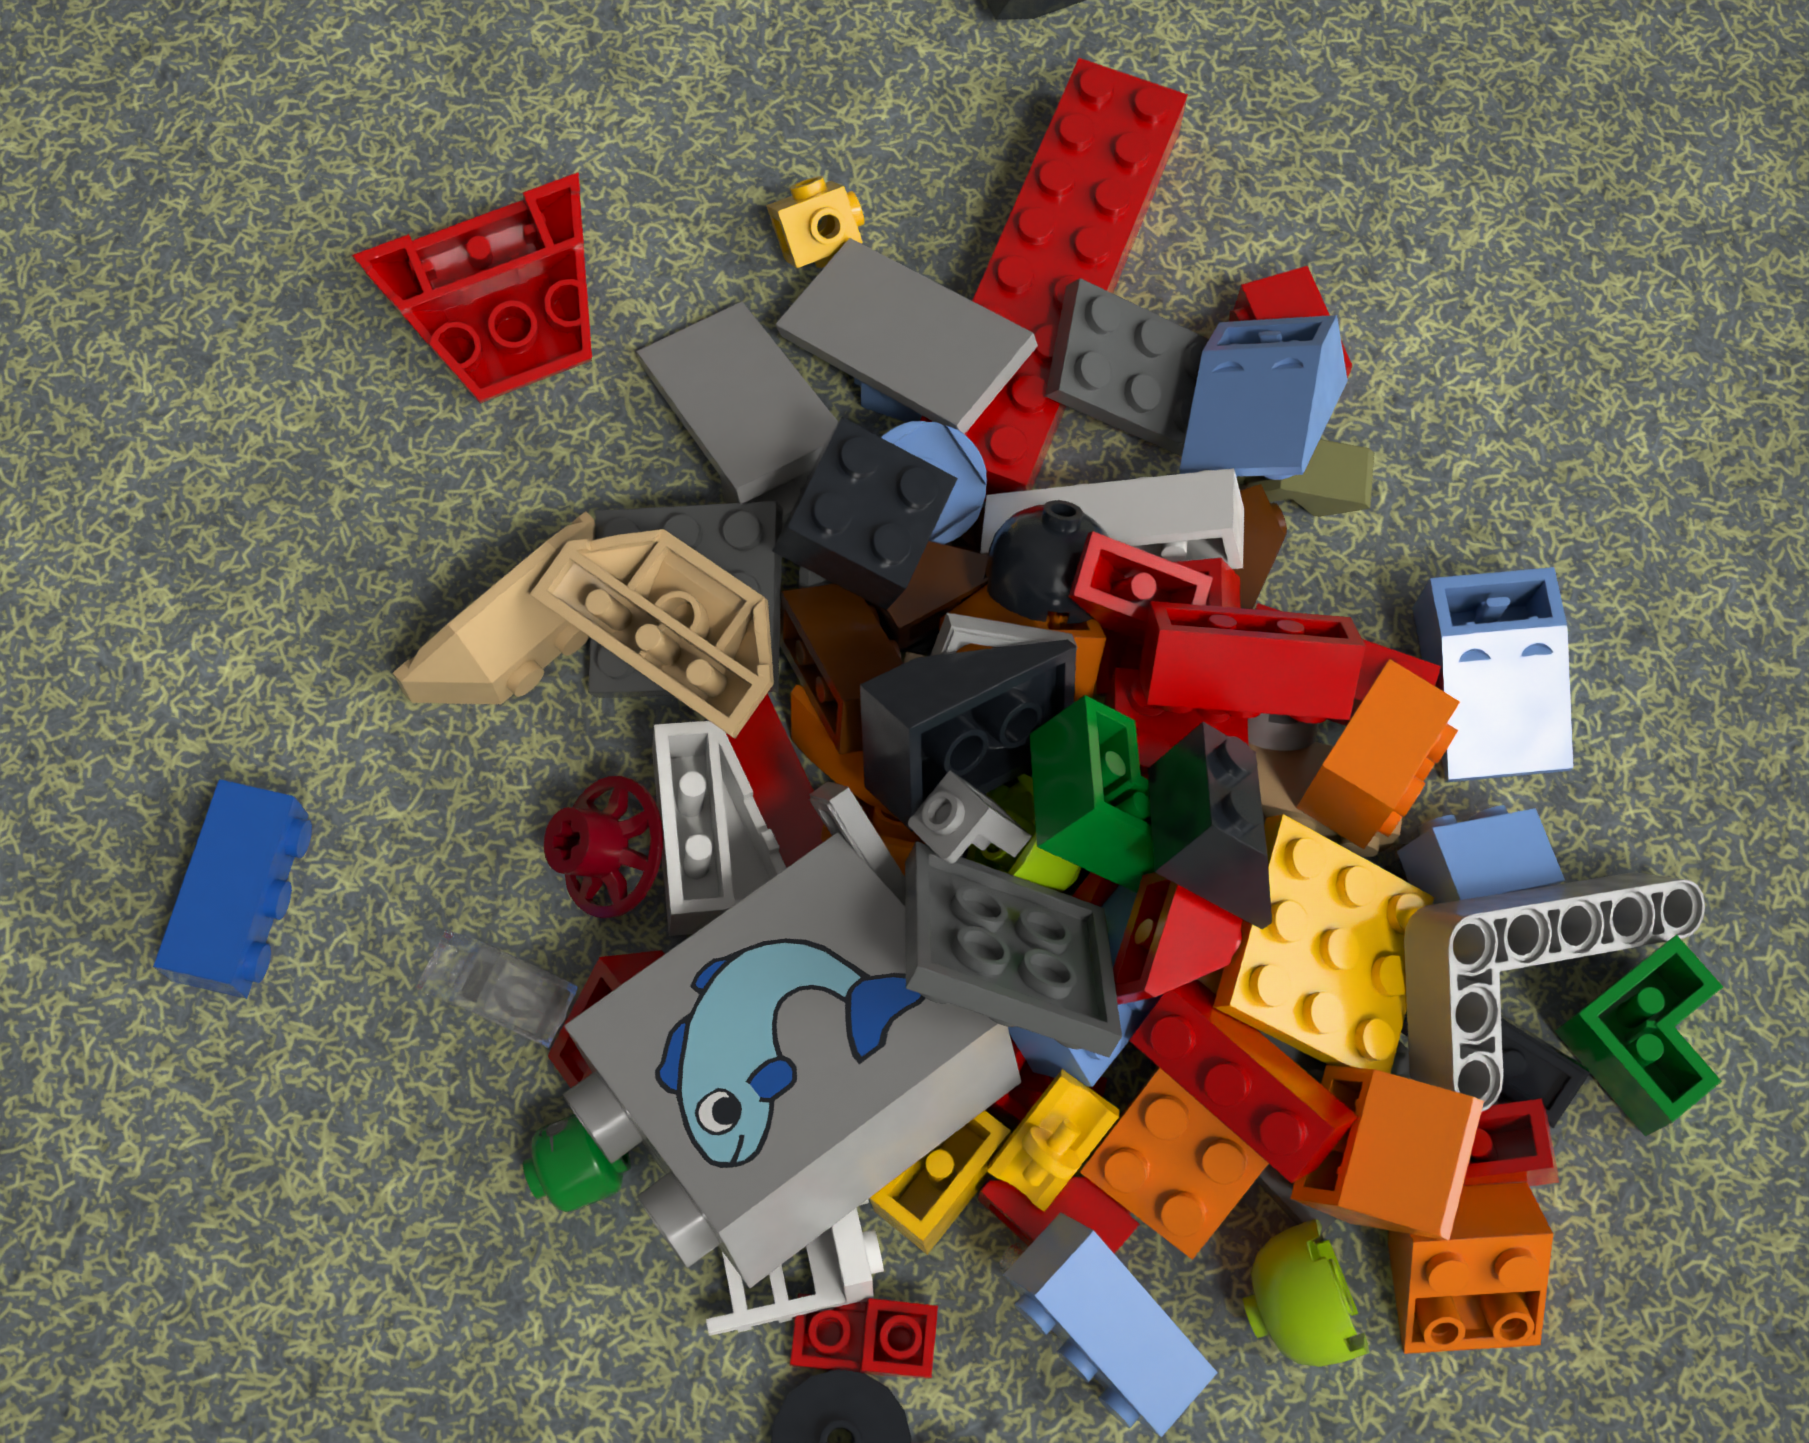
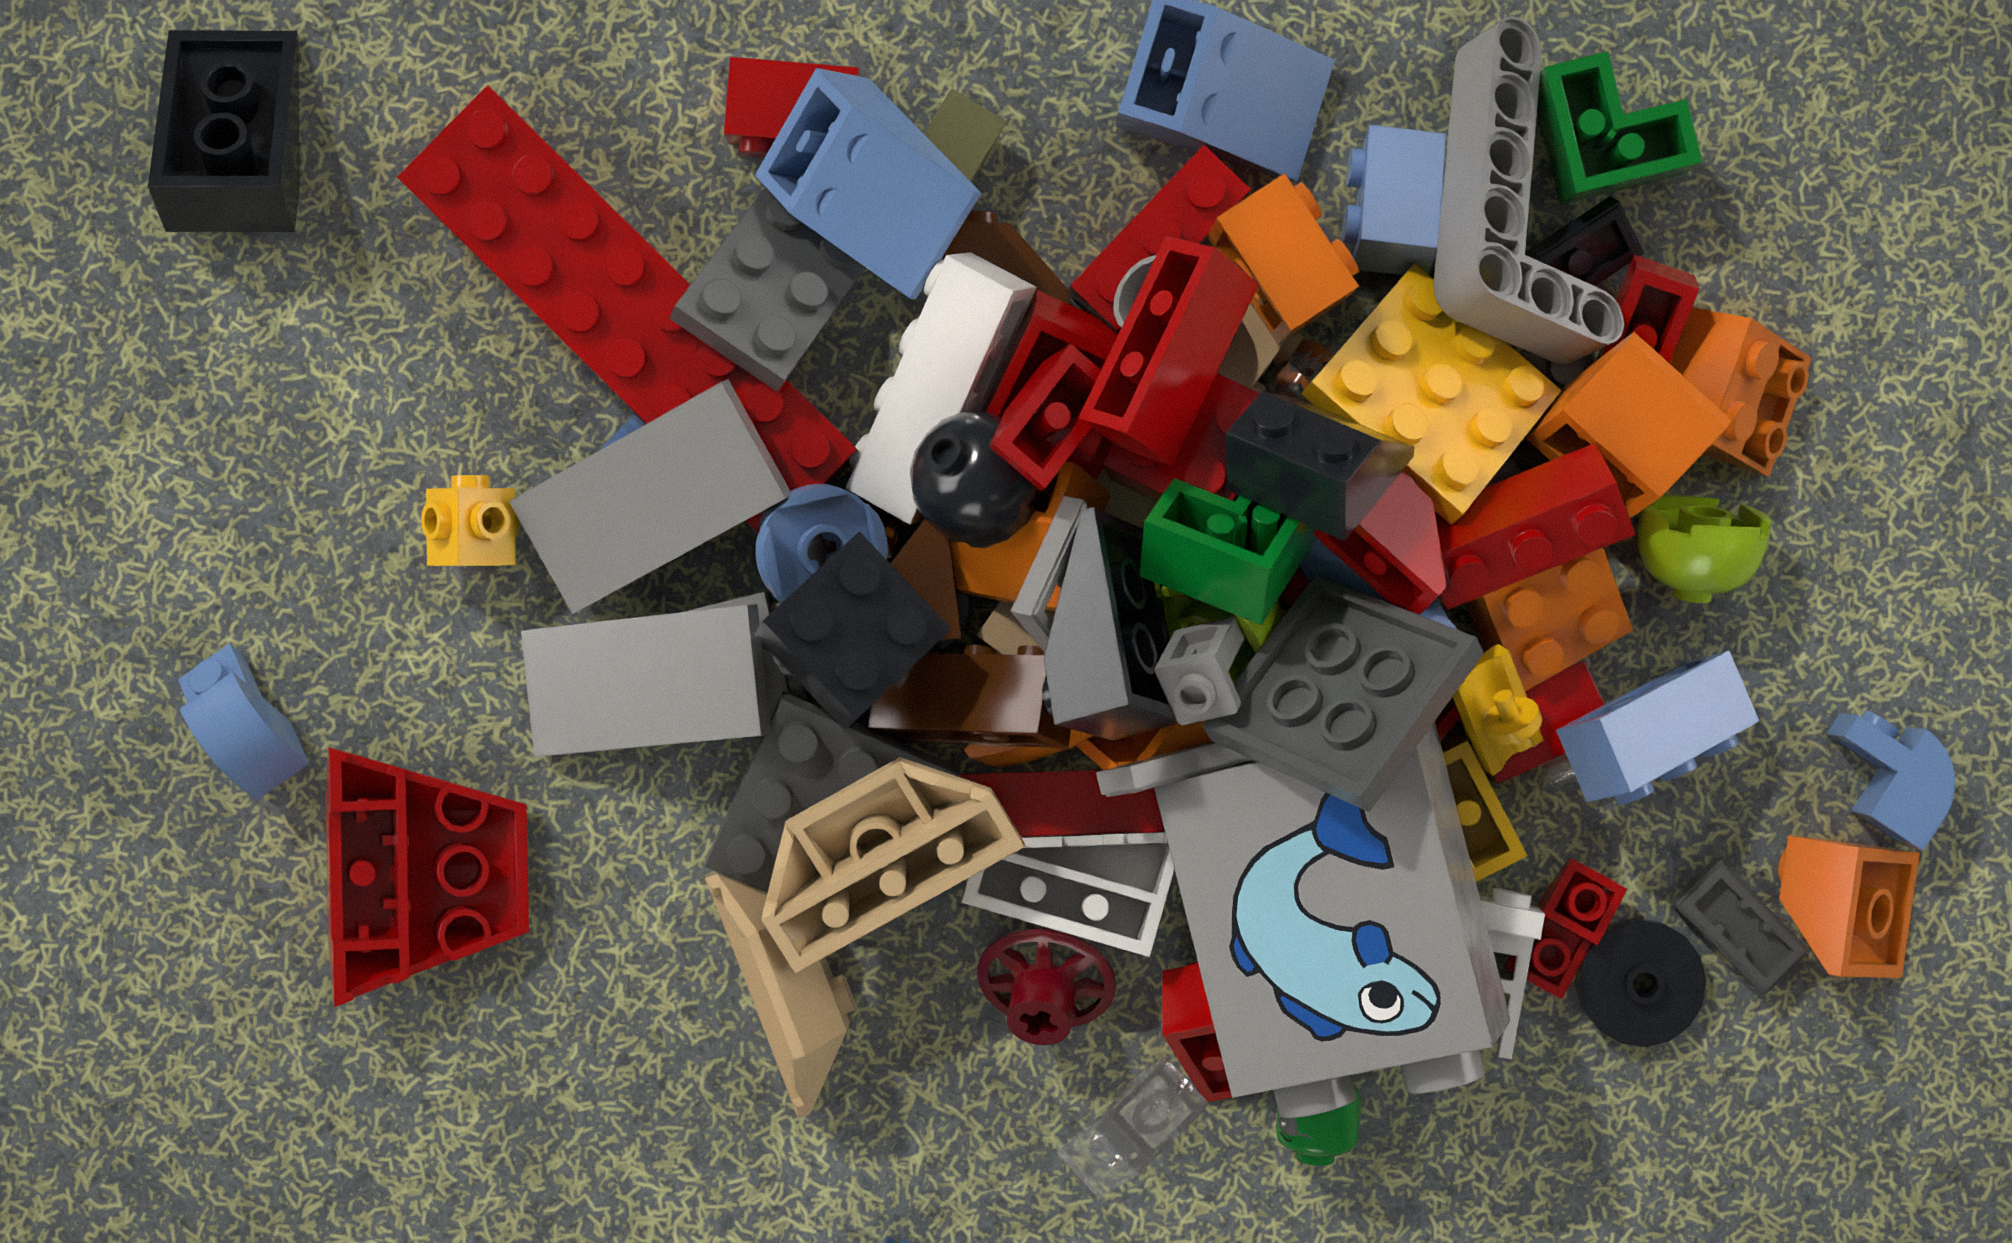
camera: 65 degrees left, 20 degrees up
(564, 117) = (238, 726): none -> medium blue brick

